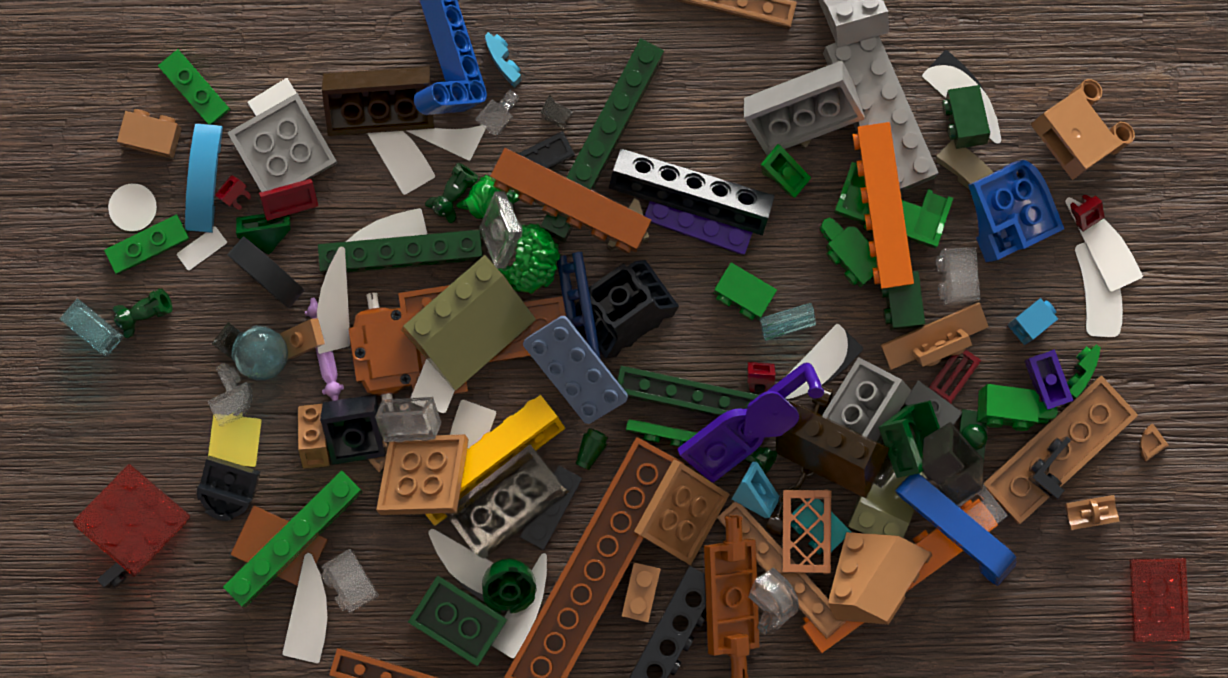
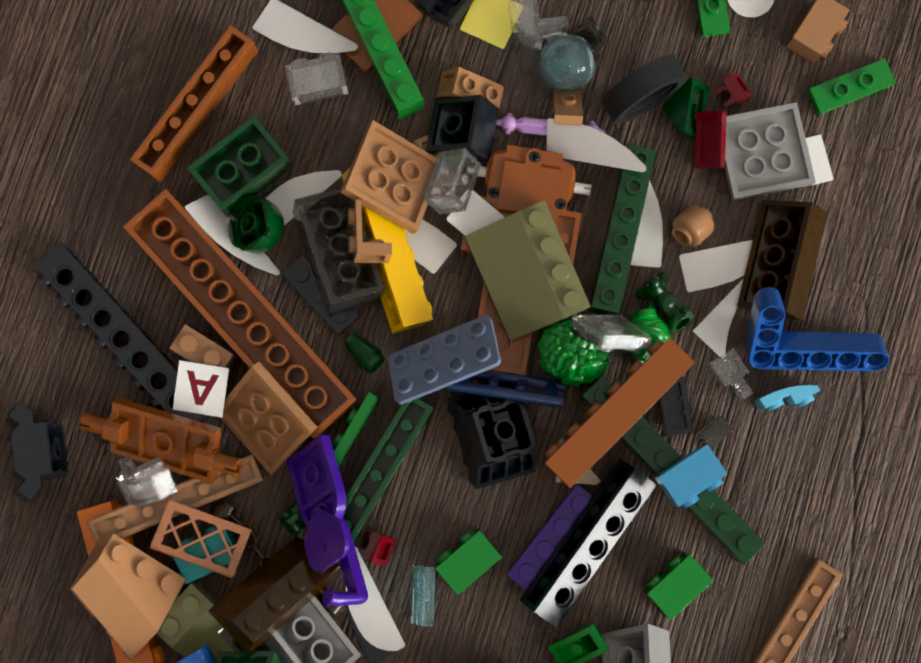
camera: 110 degrees right, 0 degrees up
(201, 248) = (689, 46): white sticker -> none
(202, 178) = (760, 64): dark azure slope -> none
(374, 190) = (692, 226): none -> medium nougat head
(498, 464) = (365, 252): none -> medium nougat bracket
(604, 119) = (691, 476): none -> dark azure brick
(675, 580) = (200, 388): none -> white sticker
(702, 103) = (677, 585): none -> green brick
(756, 492) = (261, 502): medium azure slope -> none

